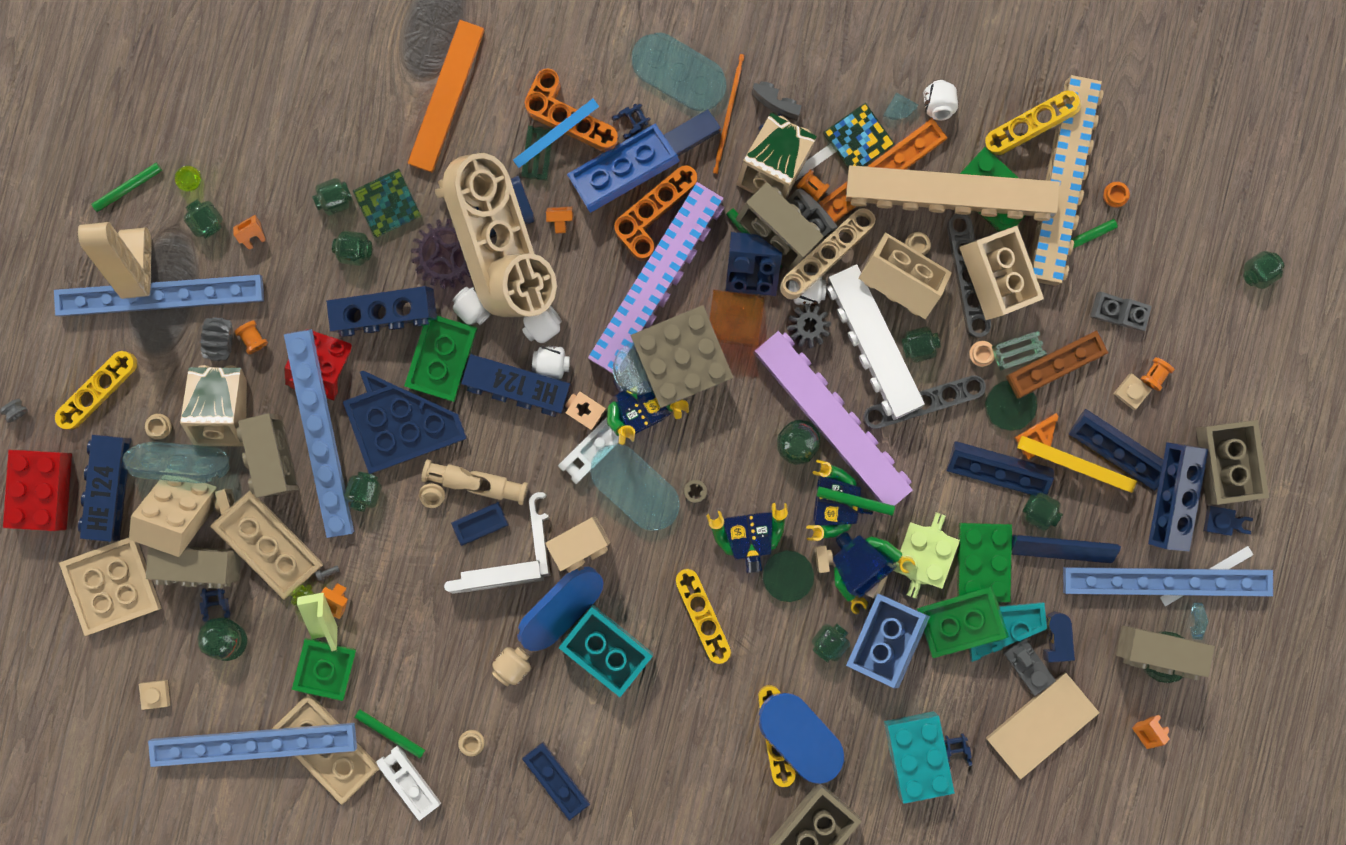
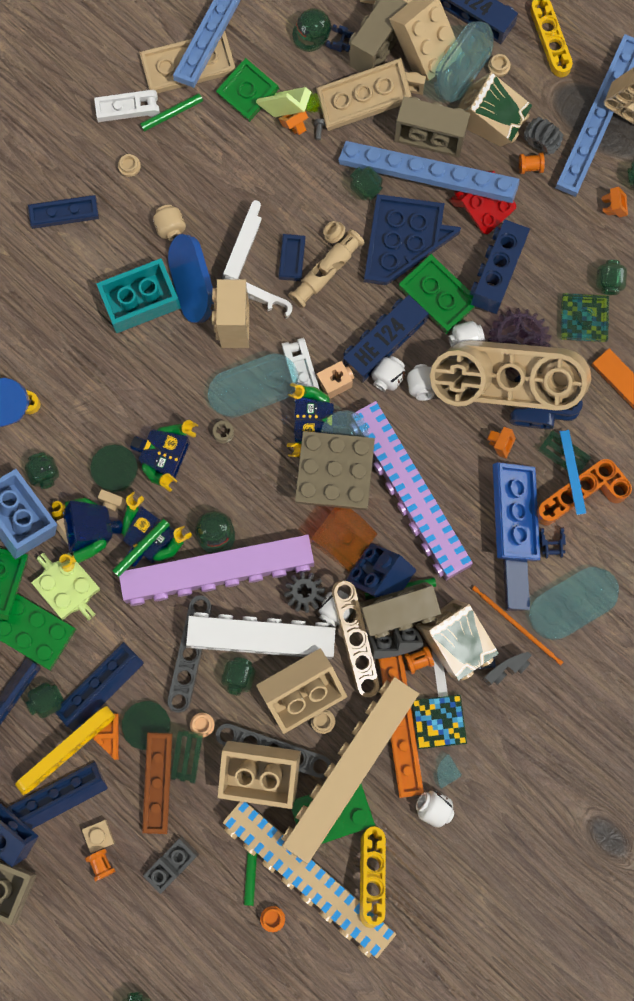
camera: 125 degrees right, 10 degrees down
(352, 248) = (562, 271): clear green head -> none
(658, 206) = (467, 523): orange beam -> none
(699, 617) = (122, 385): yellow beam -> none

